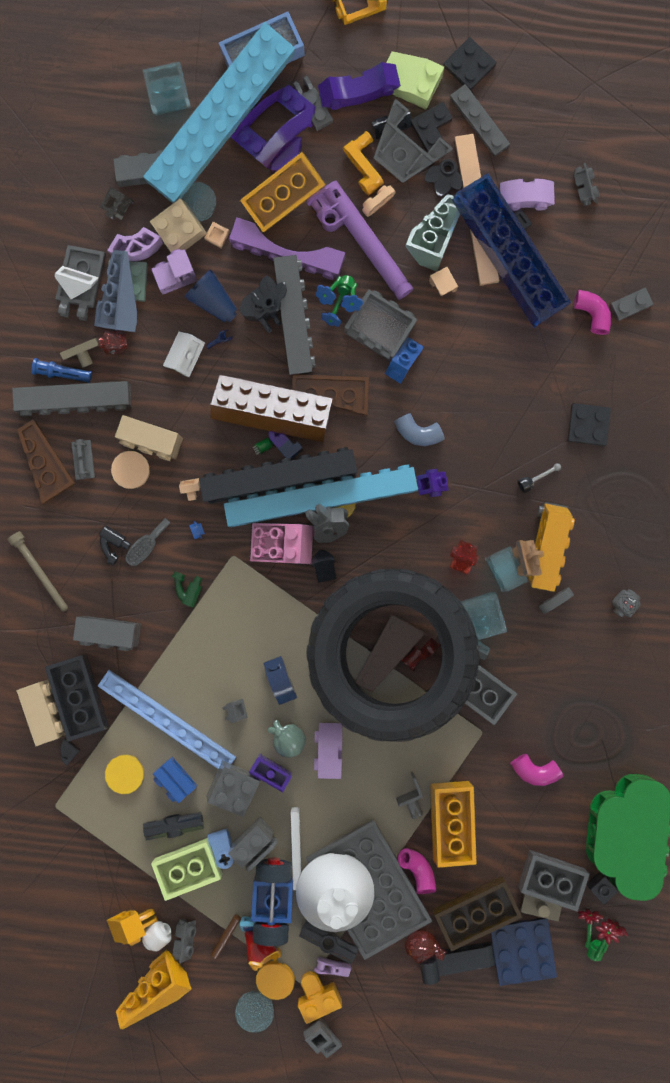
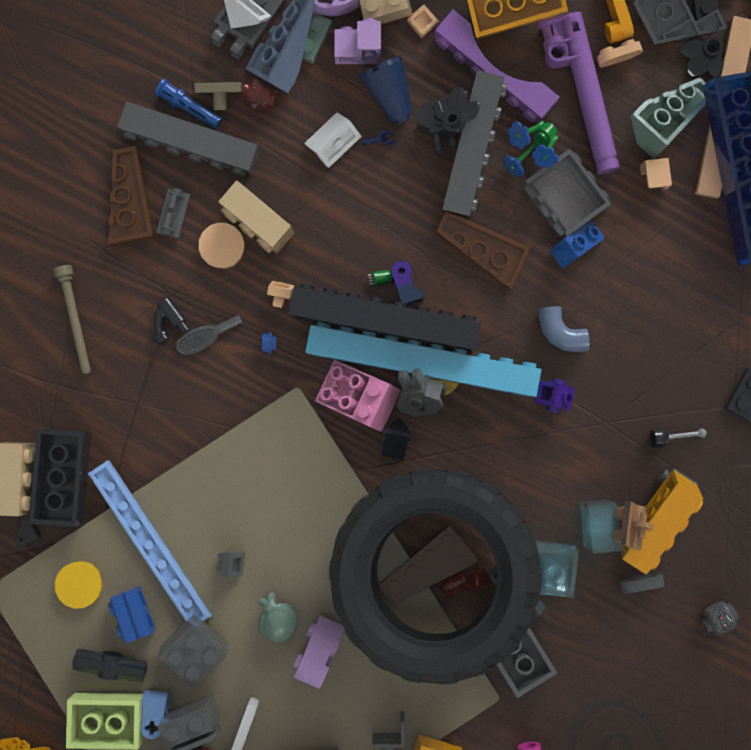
camera: 20 degrees right, 0 degrees up
(107, 632) = (122, 418): dark grey brick -> none
(192, 592) = (237, 409): dark green plant -> none
(271, 408) = (406, 239): brick -> none
(271, 773) = (243, 650): dark purple brick -> none
(280, 680) = (294, 549): dark blue brick -> none
(464, 557) = (557, 493): clear red brick -> none

